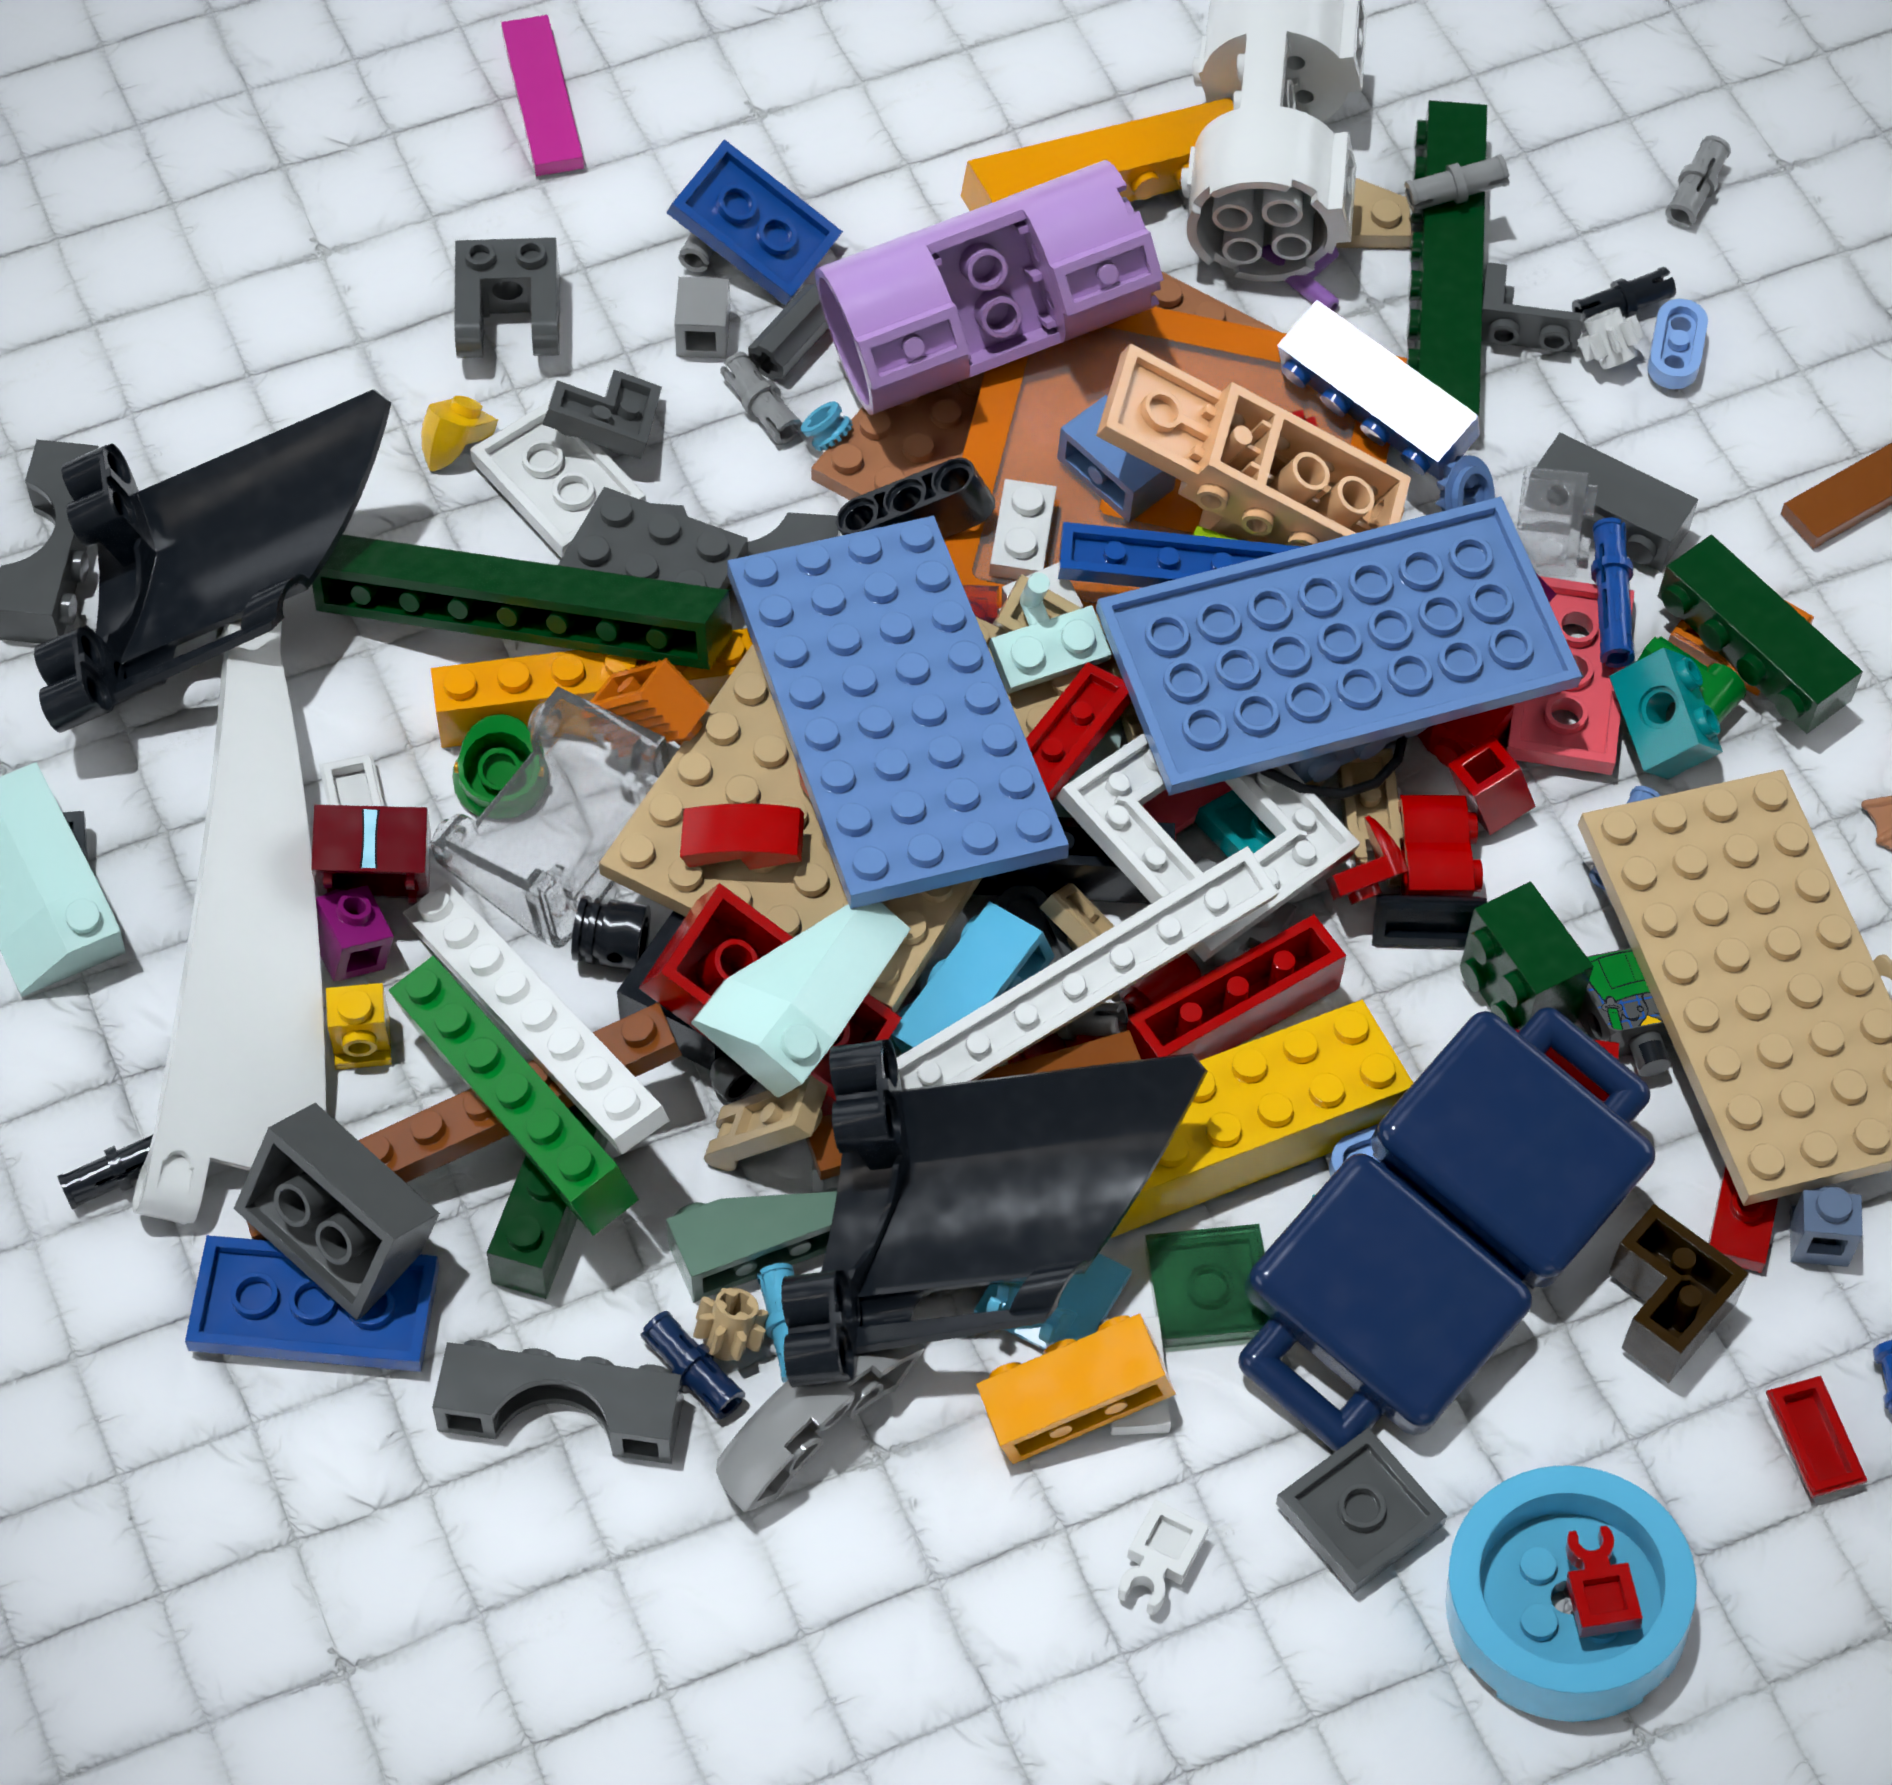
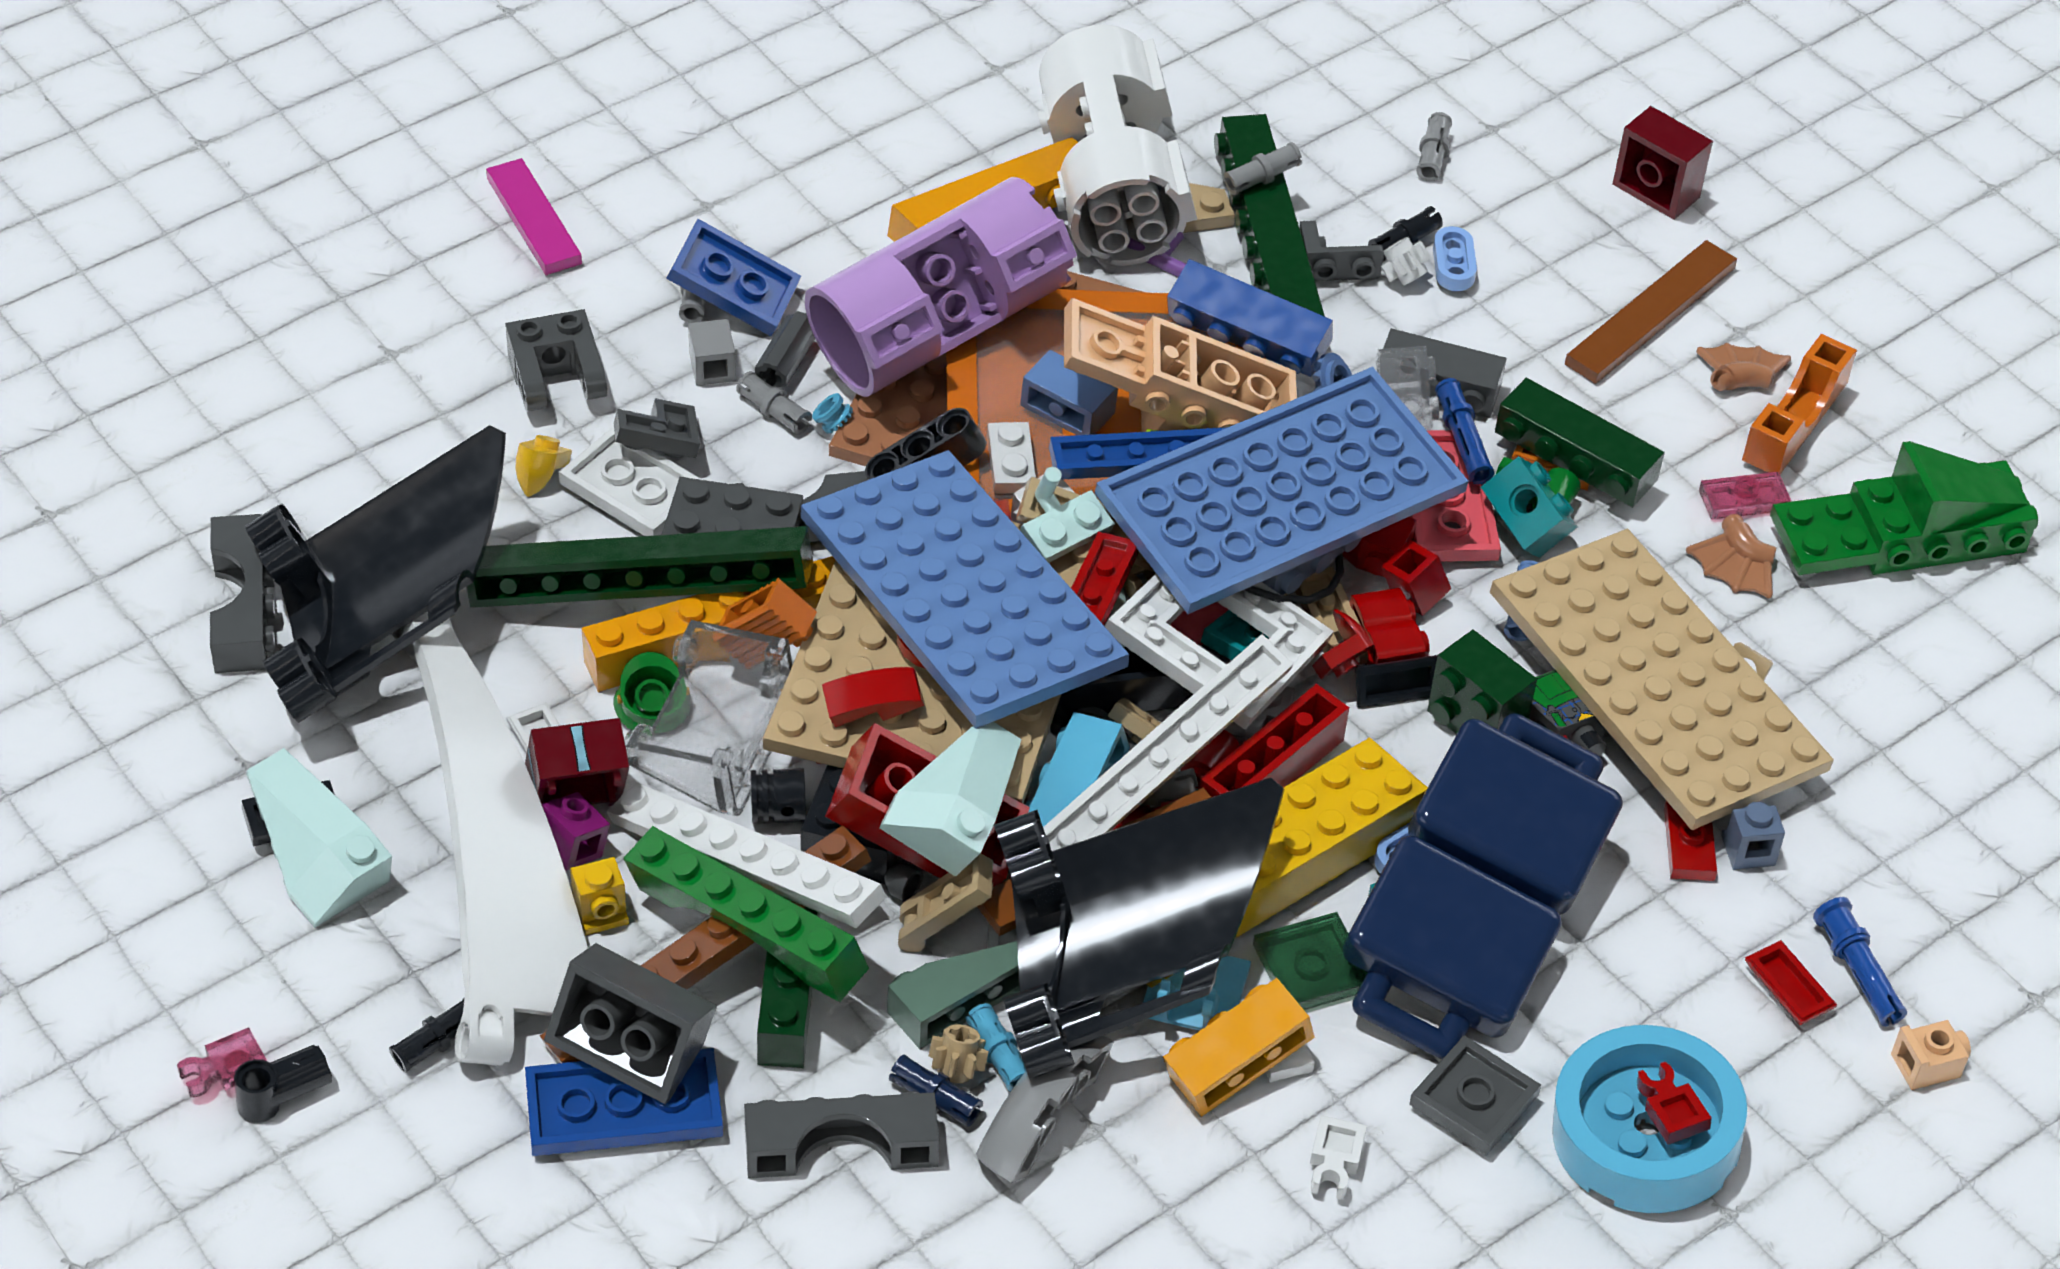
camera: 15 degrees left, 10 degrees down
(1684, 1287) = (1664, 894): dark brown brick -> none

